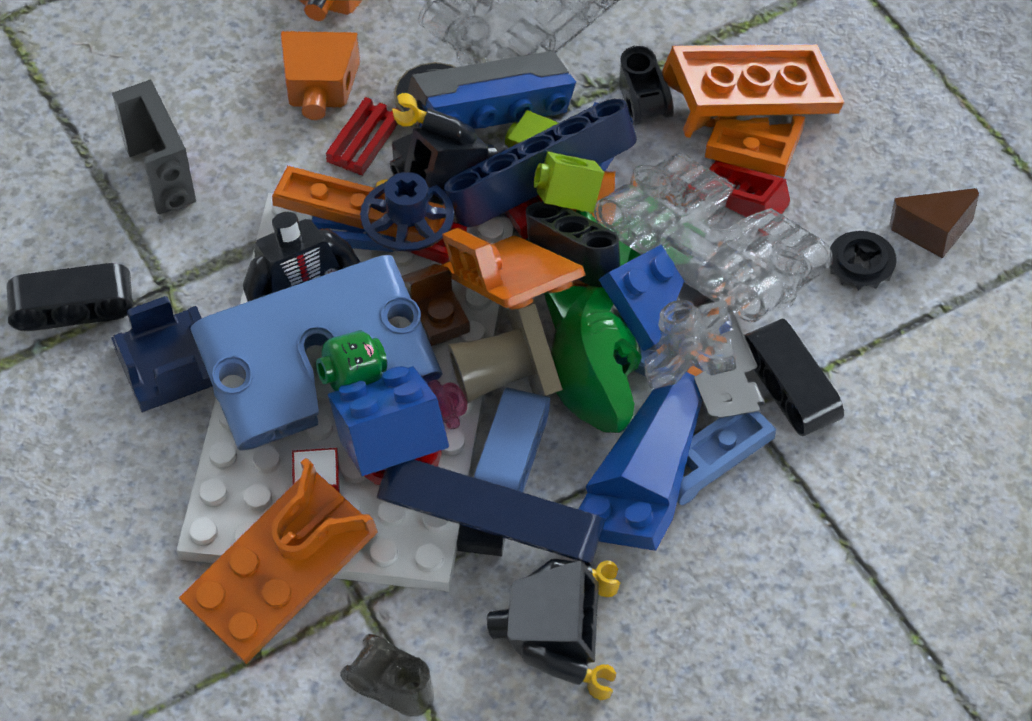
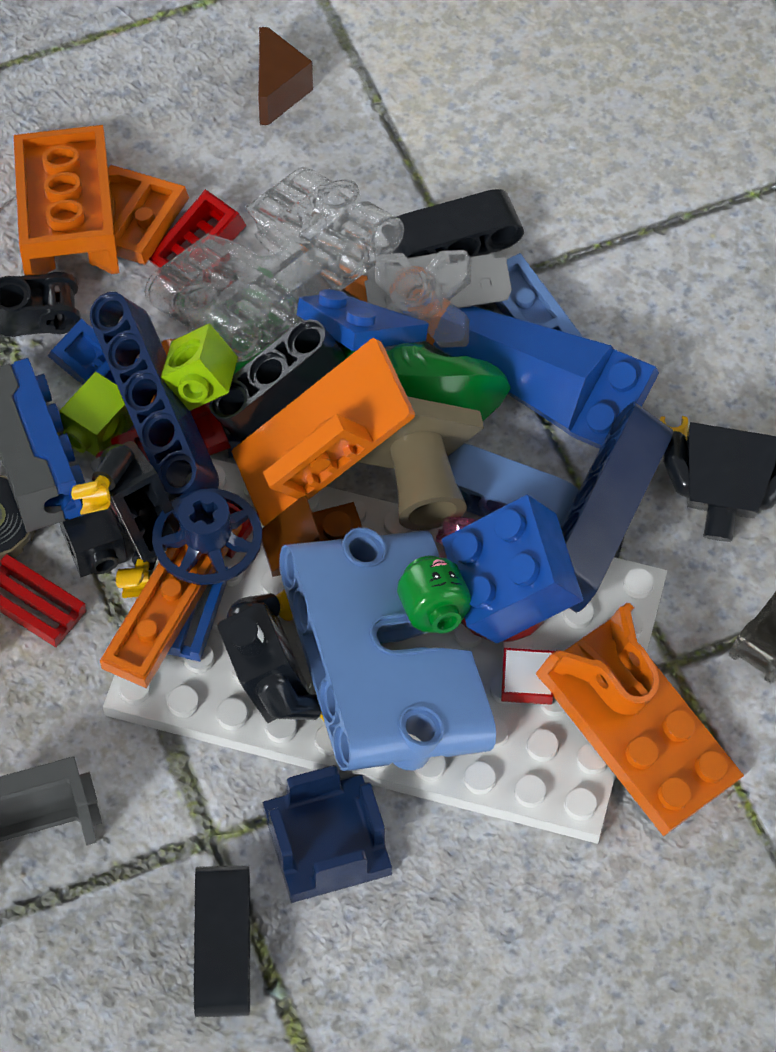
camera: 85 degrees left, 5 degrees up
(869, 247) = (323, 138): black gear -> none

